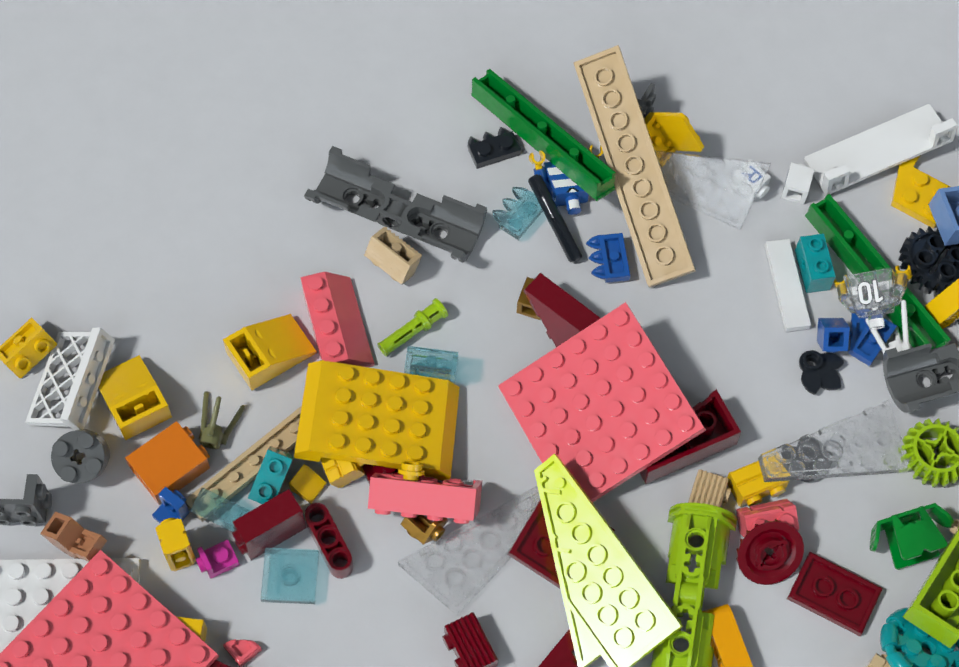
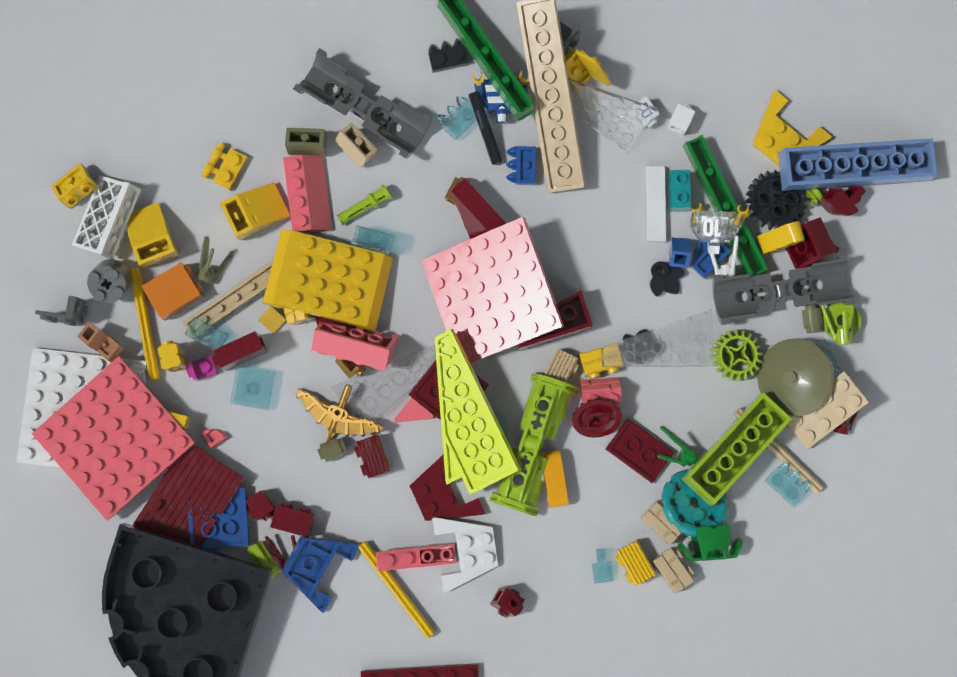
camera: 10 degrees right, 20 degrees up
(133, 513) = (144, 323): none -> yellow axle
(172, 506) = (171, 328): blue bracket -> none
(229, 307) = (229, 169): none -> yellow plate
(270, 475) = (245, 314): teal brick -> none
(328, 256) = (306, 141): none -> olive brick
(333, 551) = (275, 359): dark red beam -> none
(411, 470) = (345, 326): yellow plate -> none
(411, 599) = (337, 416): none -> bar
(411, 644) = (331, 449): none -> olive brick
(518, 579) = (412, 412): none -> coral slope
(880, 148) = (751, 97): white bracket -> none
(901, 587) = (686, 454): none -> green plant
(912, 539) = (703, 418): green piece -> none

